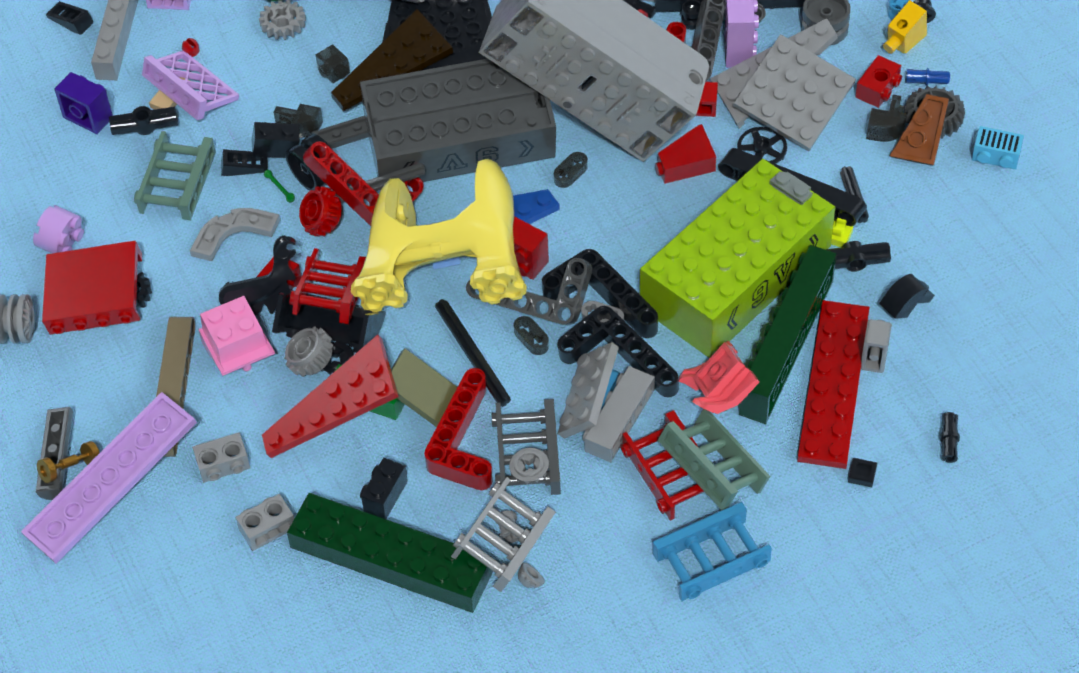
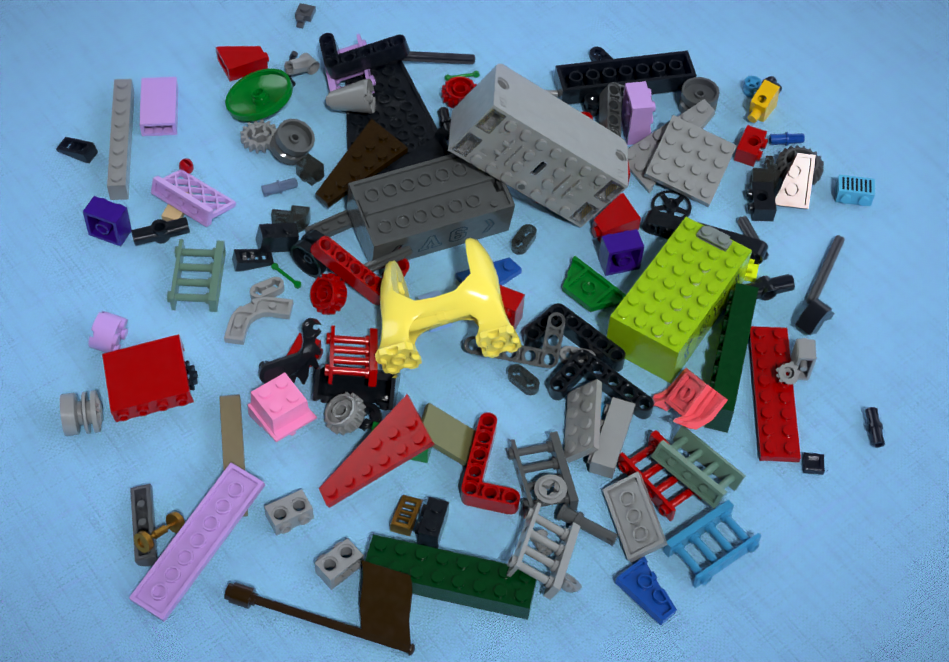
camera: 15 degrees left, 0 degrees up
(253, 199) = (267, 289): none -> light grey beam
(293, 81) = (278, 187): none -> sand blue axle
(302, 580) = (383, 607): none -> dark brown flag
(316, 27) = (292, 141): none -> dark grey wheel
(353, 492) = (402, 528): none -> pearl gold slope
(472, 351) = (477, 397): black axle -> none
(558, 503) = (569, 516): none -> dark grey pin
(618, 595) = (646, 592): none -> blue wing
(624, 509) = (634, 517): none -> light grey plate
(634, 233) = (590, 287): none -> green wing
(681, 195) = (621, 252): none -> dark purple brick
(849, 355) = (793, 373): none -> light grey animal
(876, 150) = (762, 201): none -> black brick
(938, 239) = (826, 268): none -> dark grey axle

